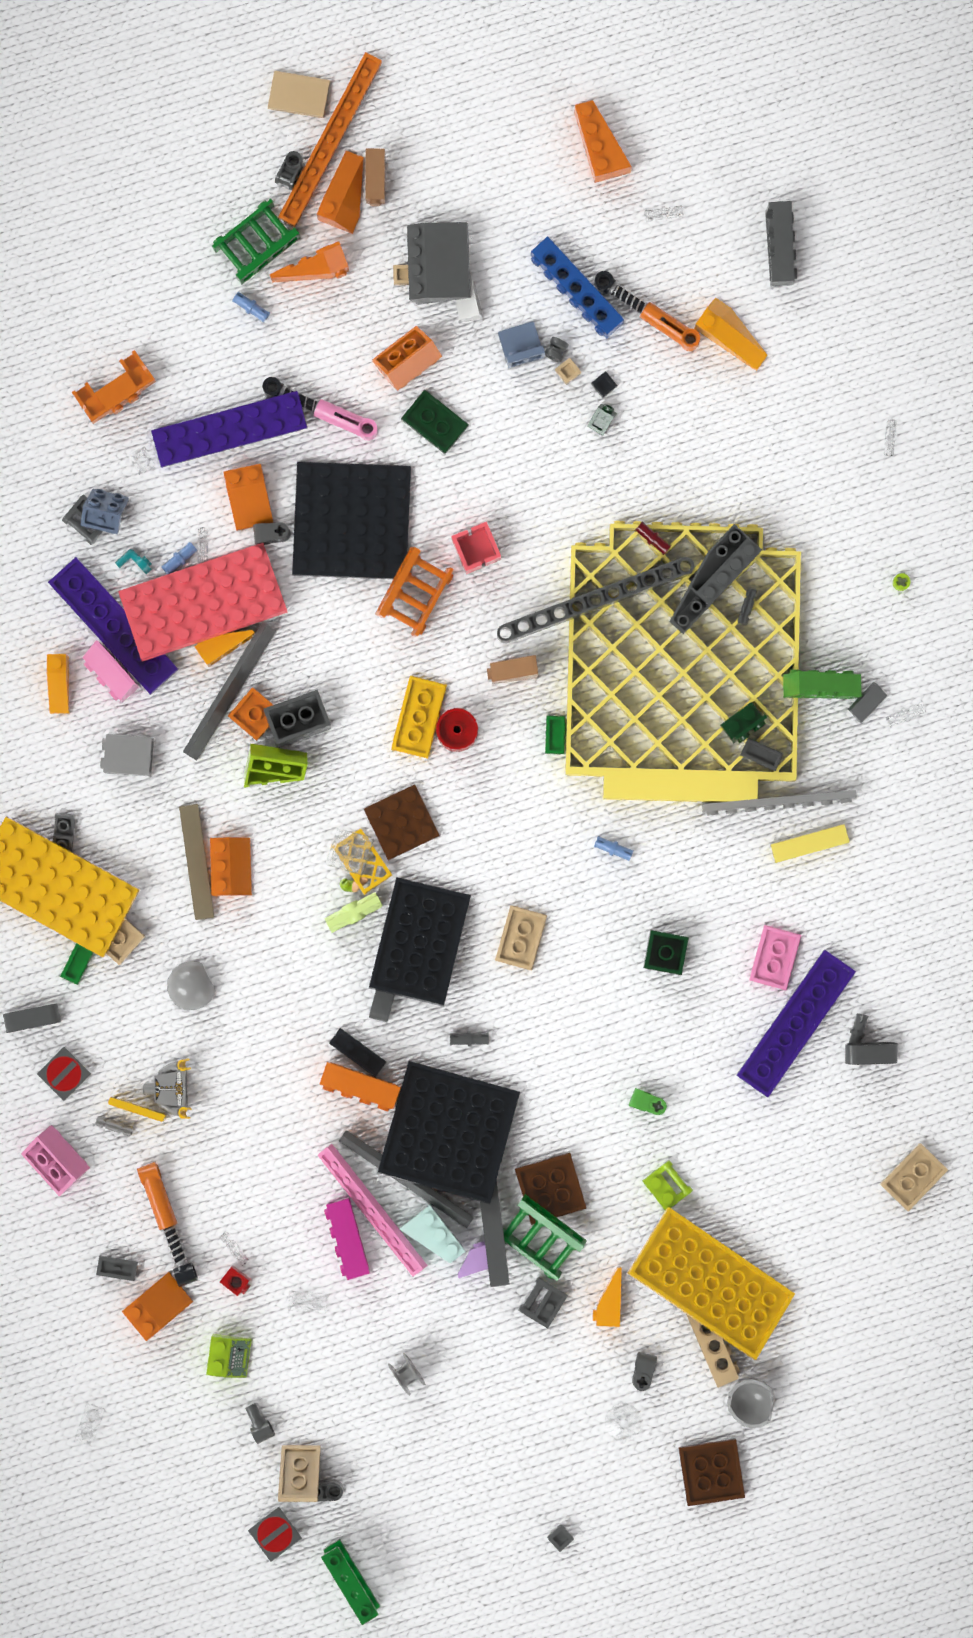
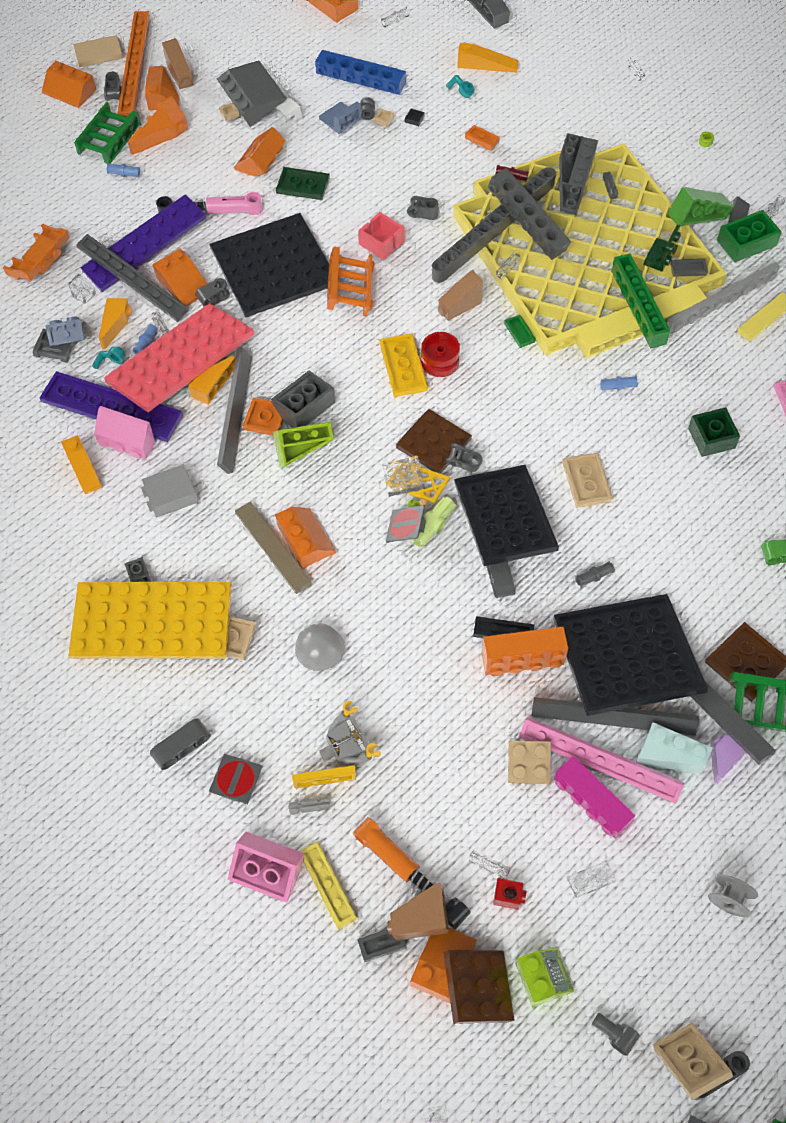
camera: 25 degrees left, 25 degrees down
(77, 964) = (202, 678): green tile -> none
(98, 1199) = (328, 886): none -> light yellow tile
(154, 1268) = (420, 916): none -> medium nougat slope
(159, 515) = (114, 319): none -> light orange slope
(172, 1340) = (478, 986): none -> reddish brown plate
(196, 473) = (132, 277): none -> dark grey tile
(241, 140) = (68, 84): none -> orange slope
(312, 1182) = (529, 762): none -> tan plate
(324, 906) = (406, 524): none -> piece
(415, 860) = (463, 457): none -> dark grey piece
(539, 523) = (425, 208): none -> dark grey piece
(580, 659) = (508, 265): none -> clear axle
(602, 418) = (426, 132): bracket -> none
(645, 660) = (529, 214): none -> dark grey brick
(649, 312) = (424, 66): piece -> none
(659, 456) = (482, 137): none -> orange plate
(679, 369) = (465, 88): none -> teal plate
(681, 776) = (640, 301): none -> green brick
(853, 741) = (749, 236): none -> green brick

